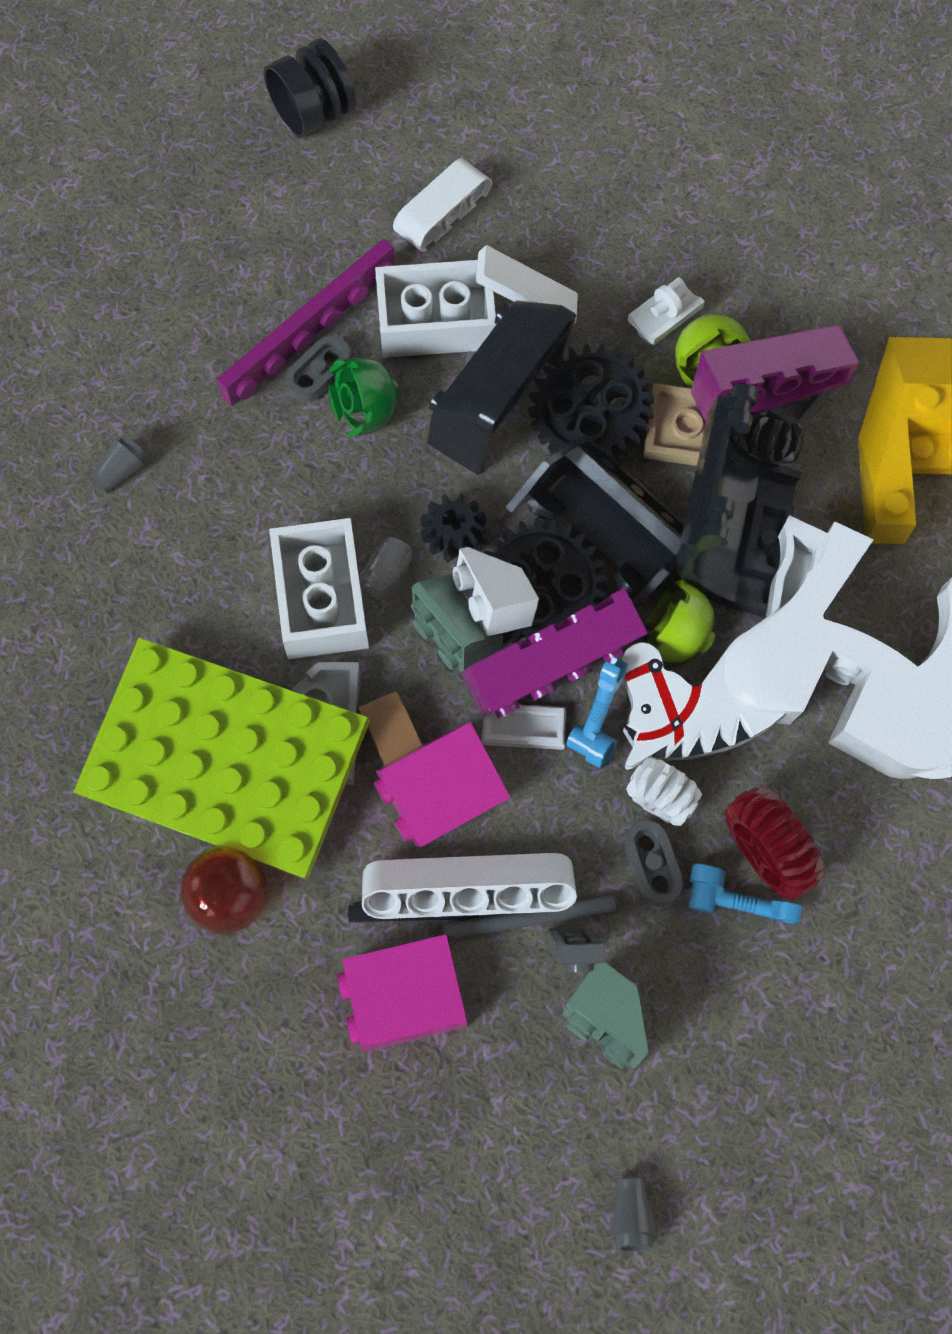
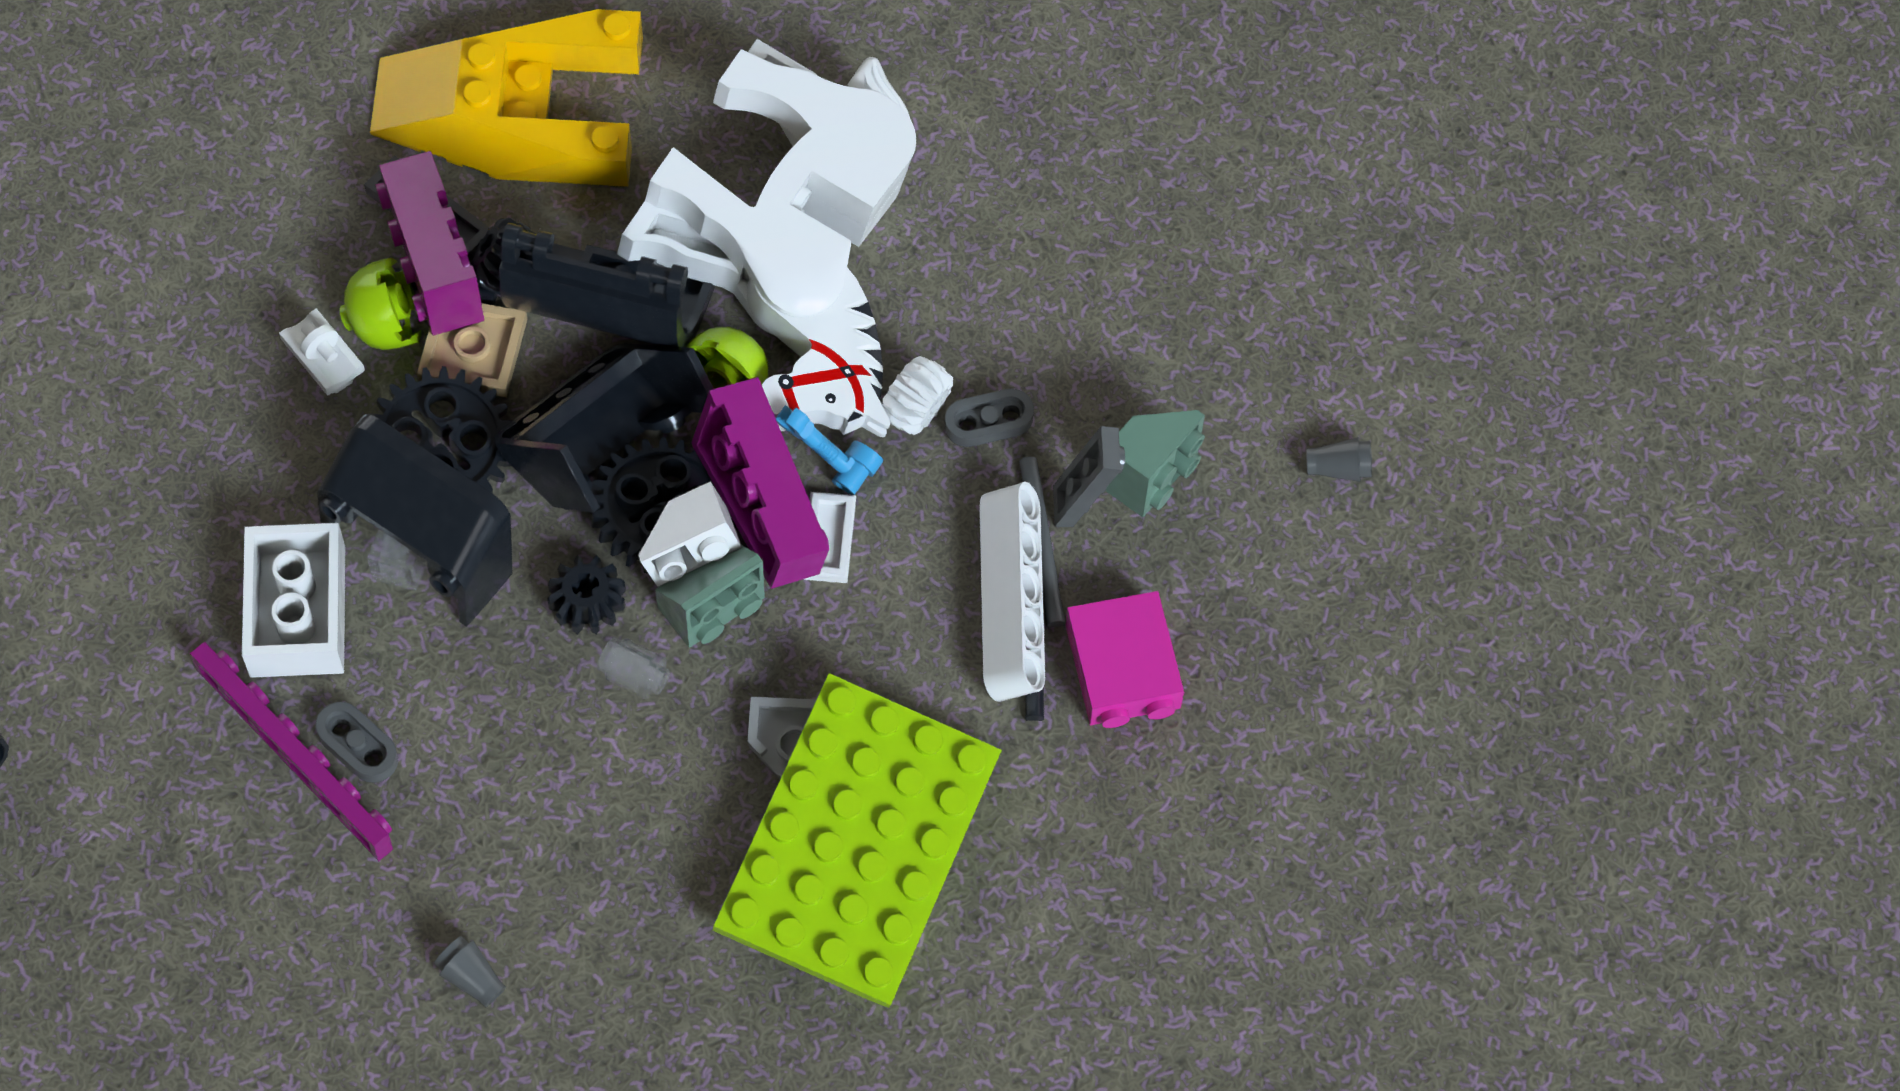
camera: 90 degrees left, 5 degrees down
(224, 890) = (1007, 842): clear red cylinder -> none
(318, 588) = (660, 733): white brick -> none
(365, 387) = (406, 681): green cylinder -> none
(390, 727) = (849, 657): medium nougat slope -> none
(441, 203) = (133, 591): white beam -> none
(441, 785) = (901, 611): dark pink brick -> none
(520, 282) = (280, 494): white tile -> none
(709, 891) = (1020, 367): dark azure brick -> none
(775, 842) = (977, 294): dark red gear -> none

